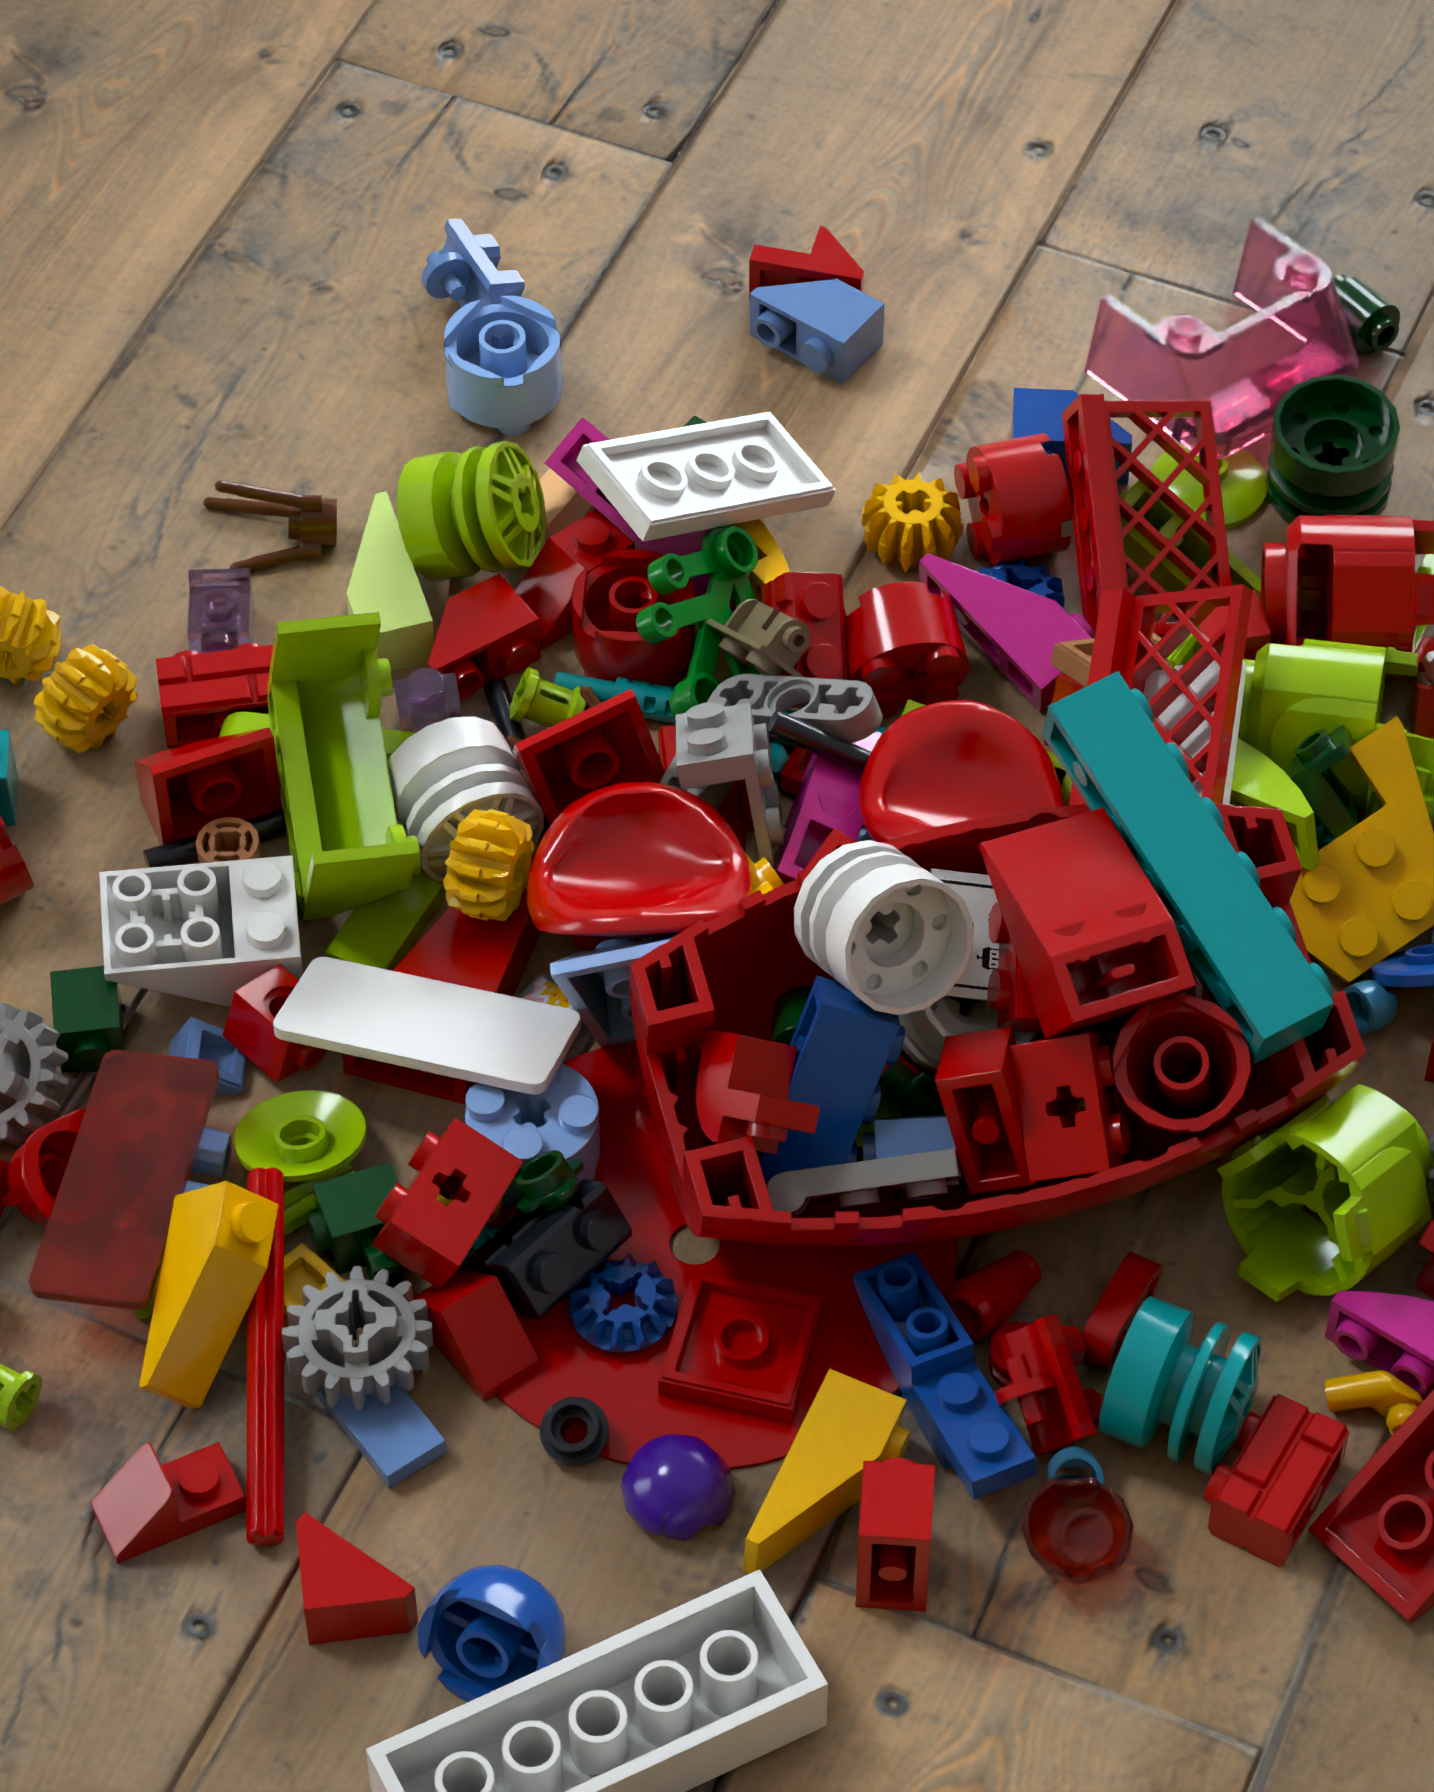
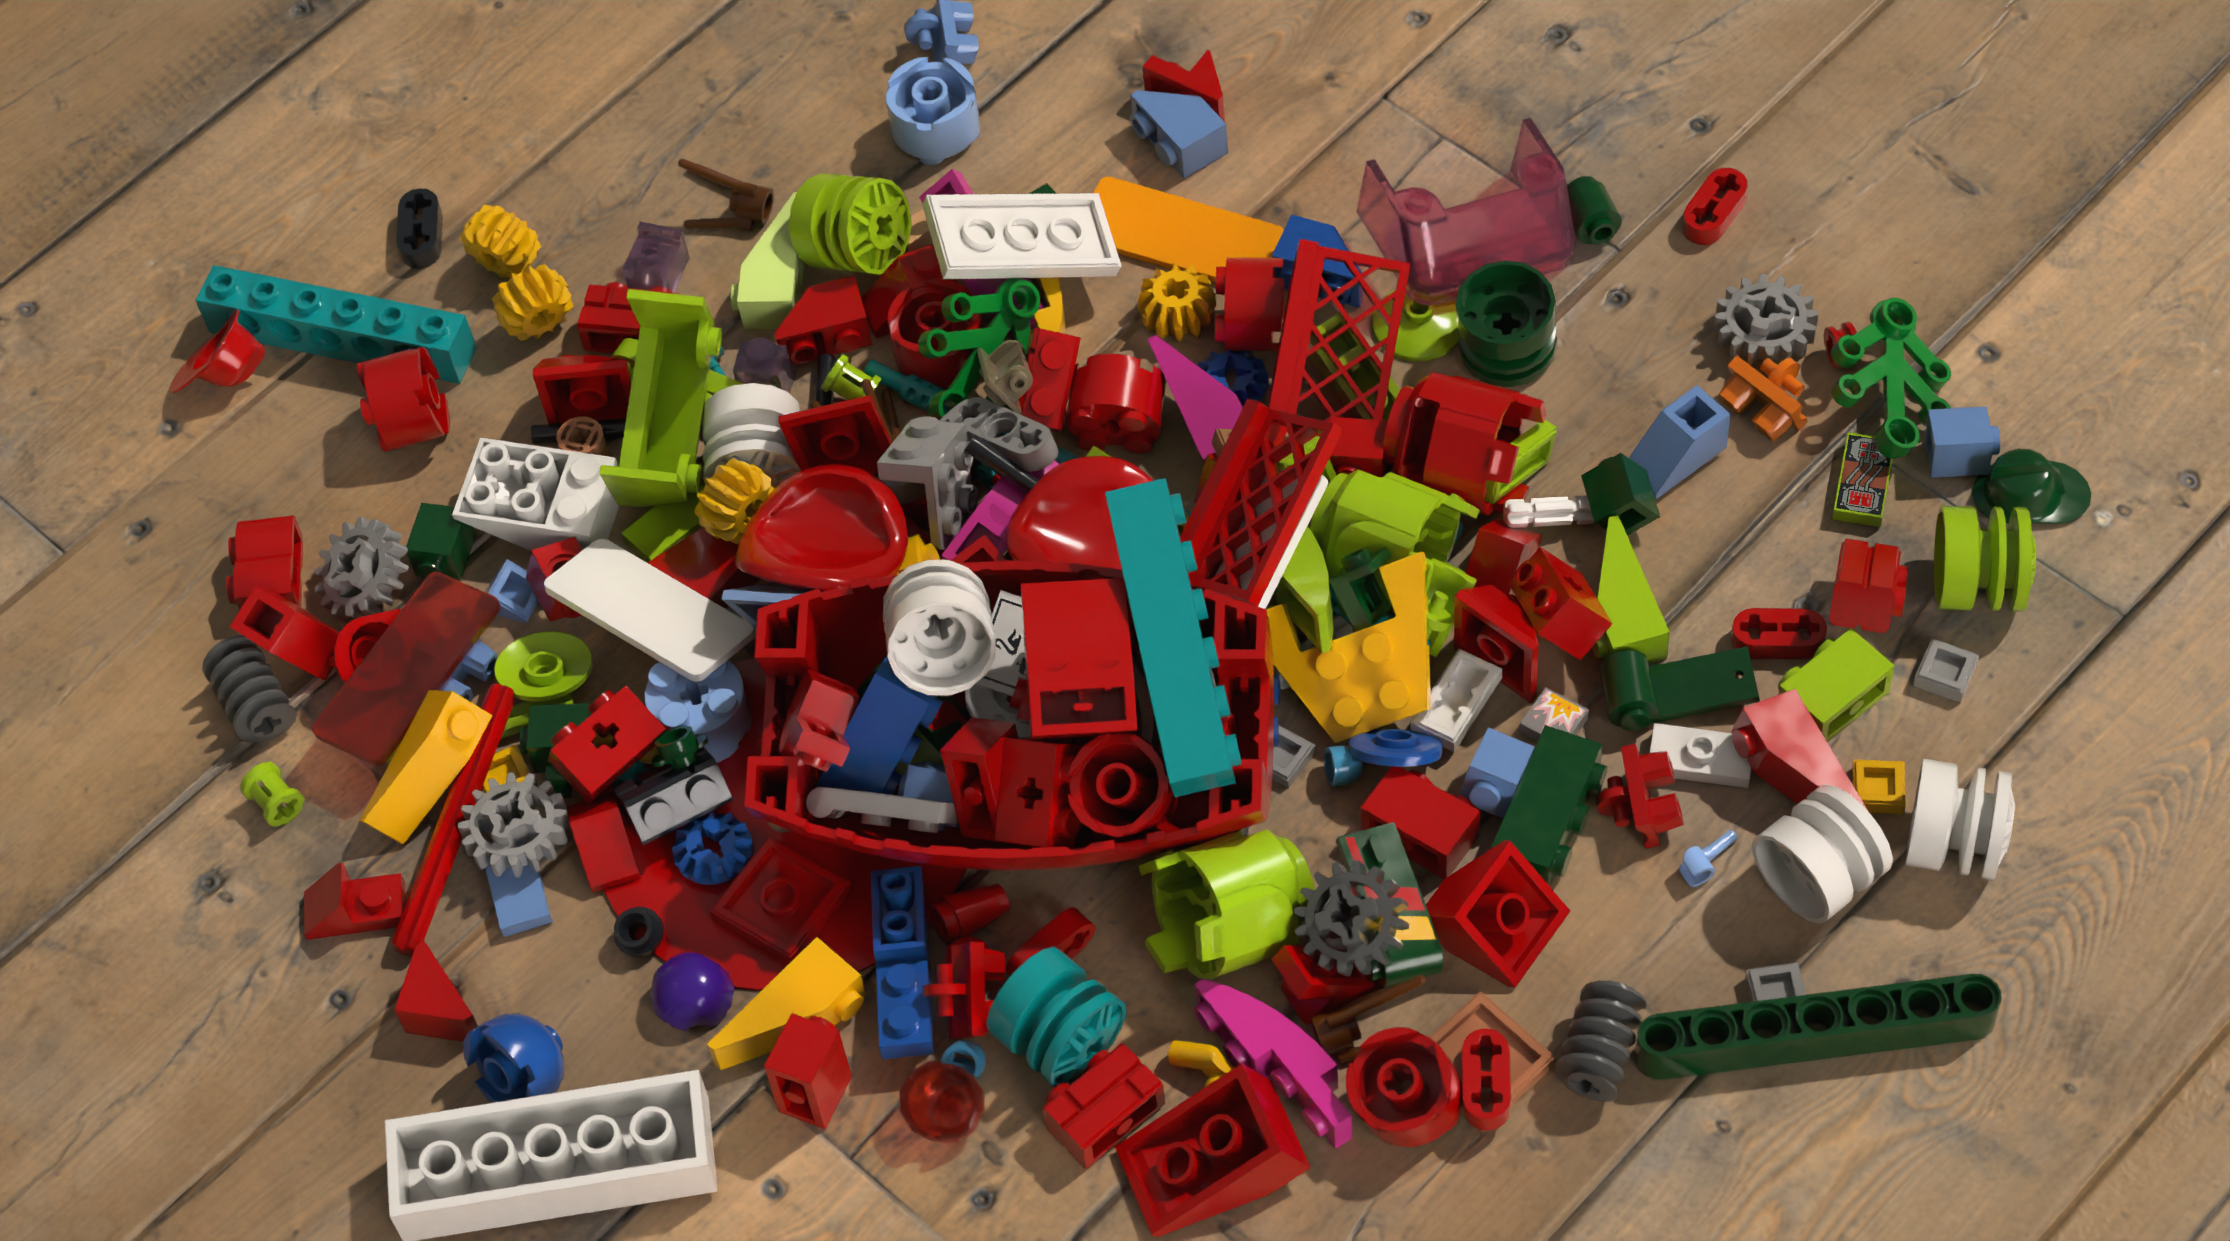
camera: 25 degrees right, 5 degrees up
(871, 443) = (1180, 230): none -> light orange piece

